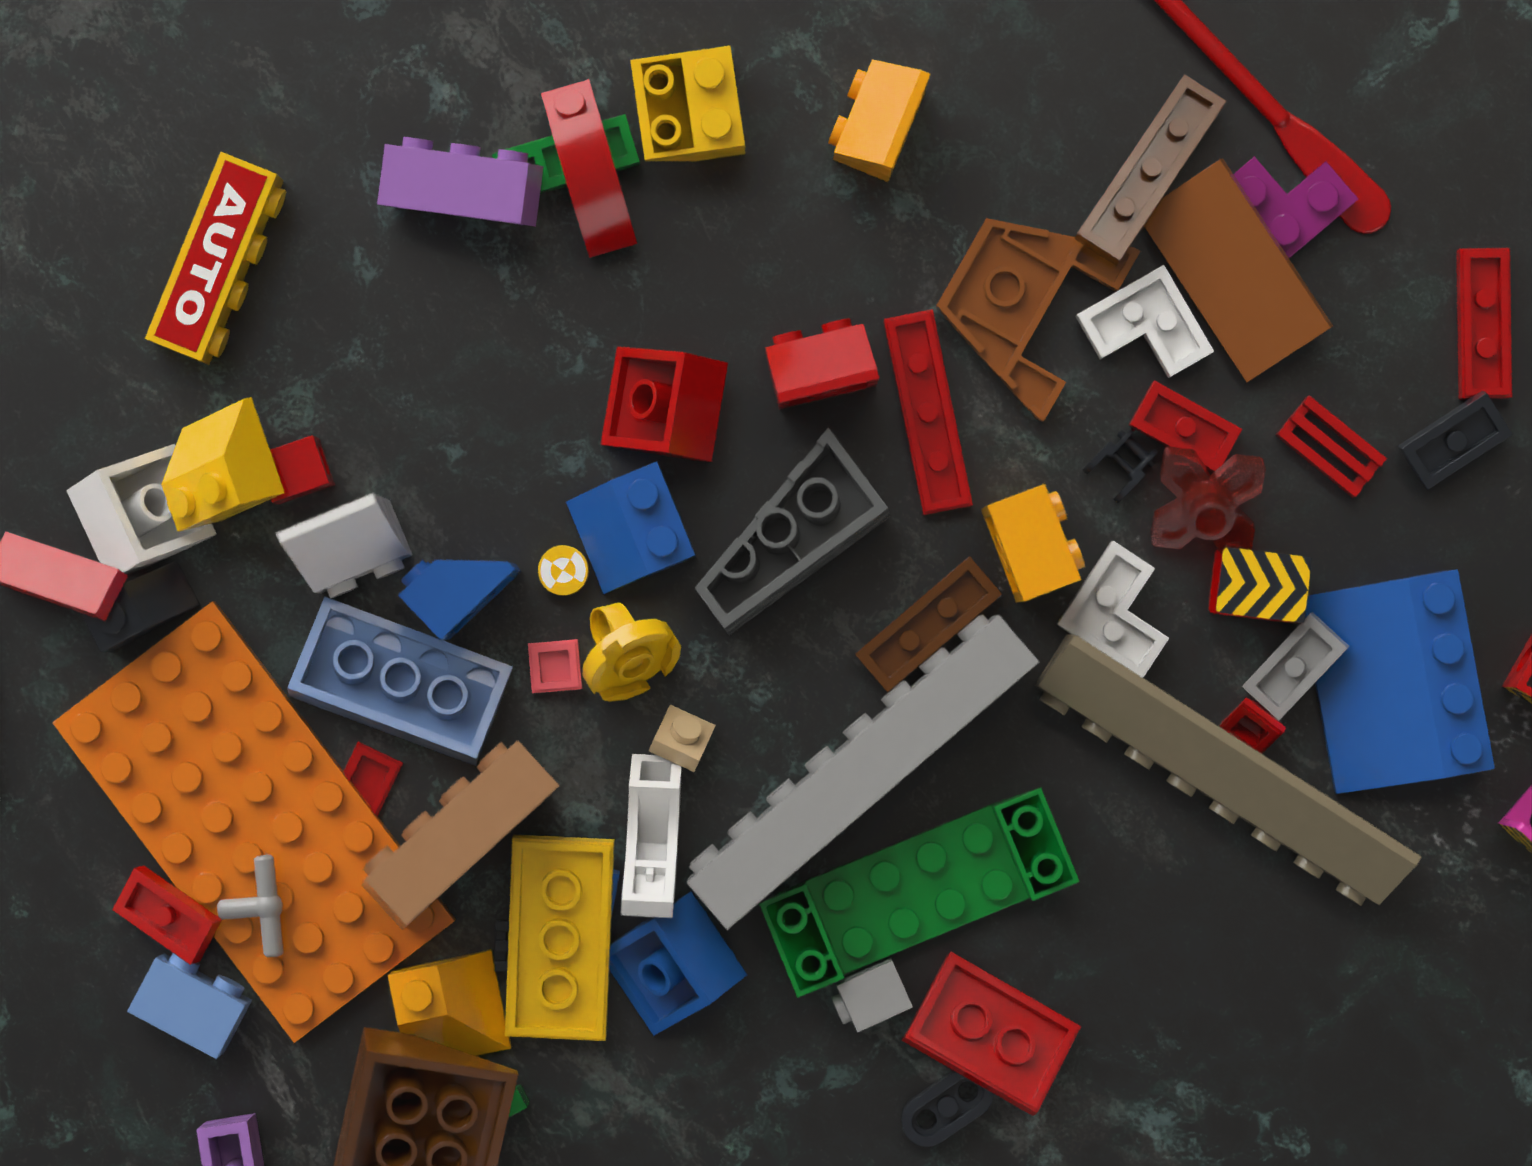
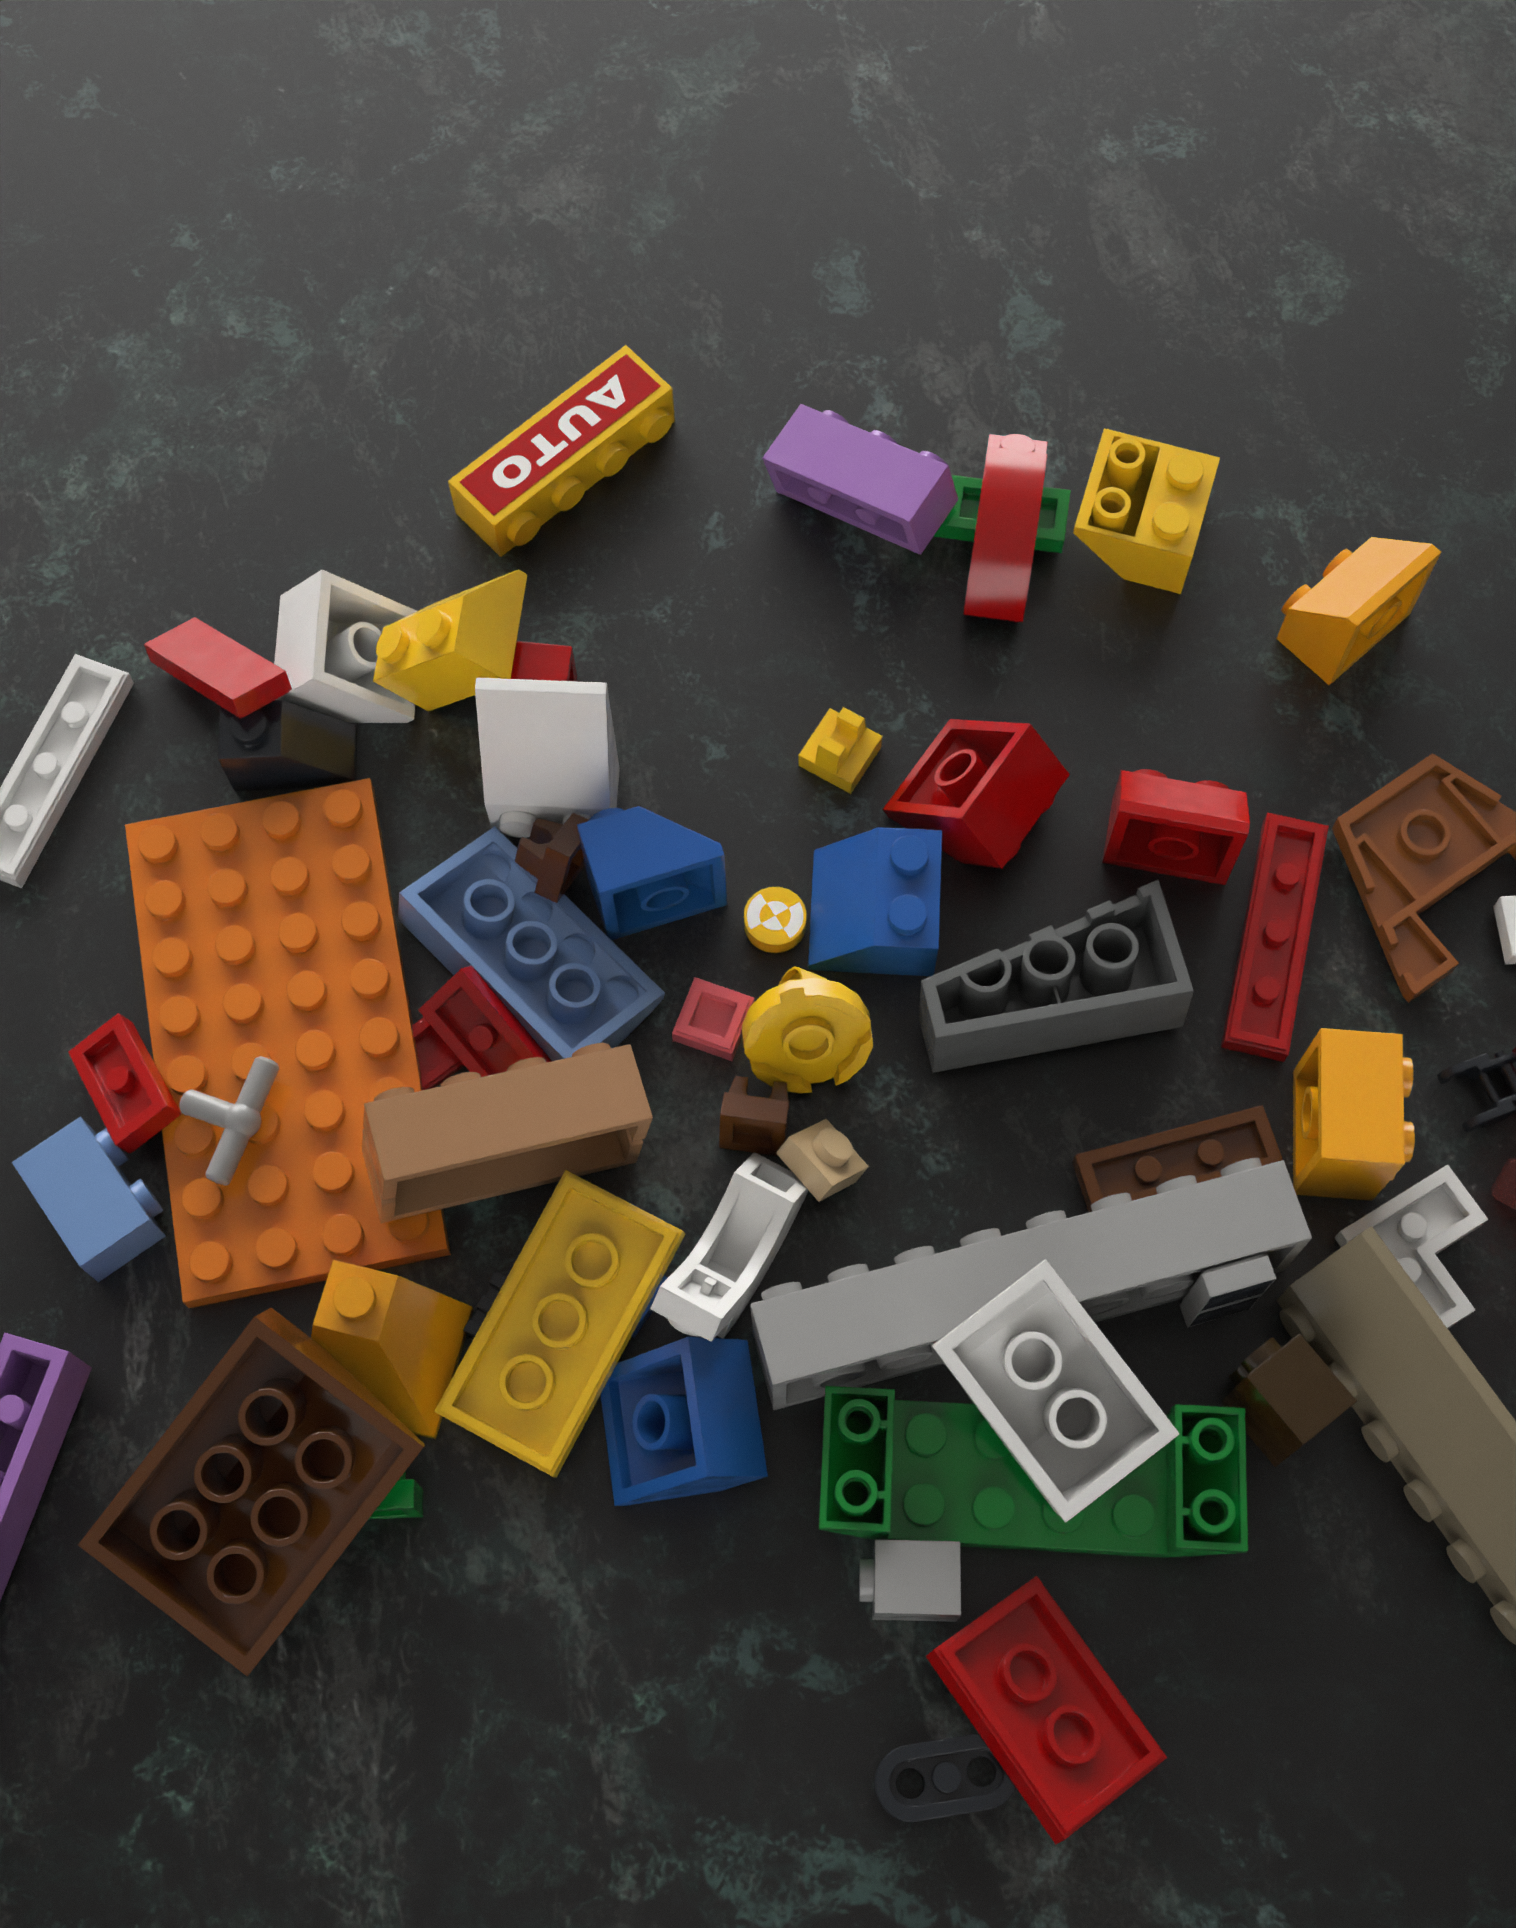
camera: 30 degrees right, 20 degrees down
(388, 607) = (552, 855): none -> reddish brown tile
(403, 761) = (478, 1025): none -> red plate
(548, 412) = (840, 749): none -> yellow tile
(620, 734) = (754, 1121): none -> reddish brown tile
(913, 846) = (1055, 1391): none -> white slope
(998, 711) = (1227, 1290): none -> light grey tile
(1065, 766) = (1286, 1396): none -> dark brown piece

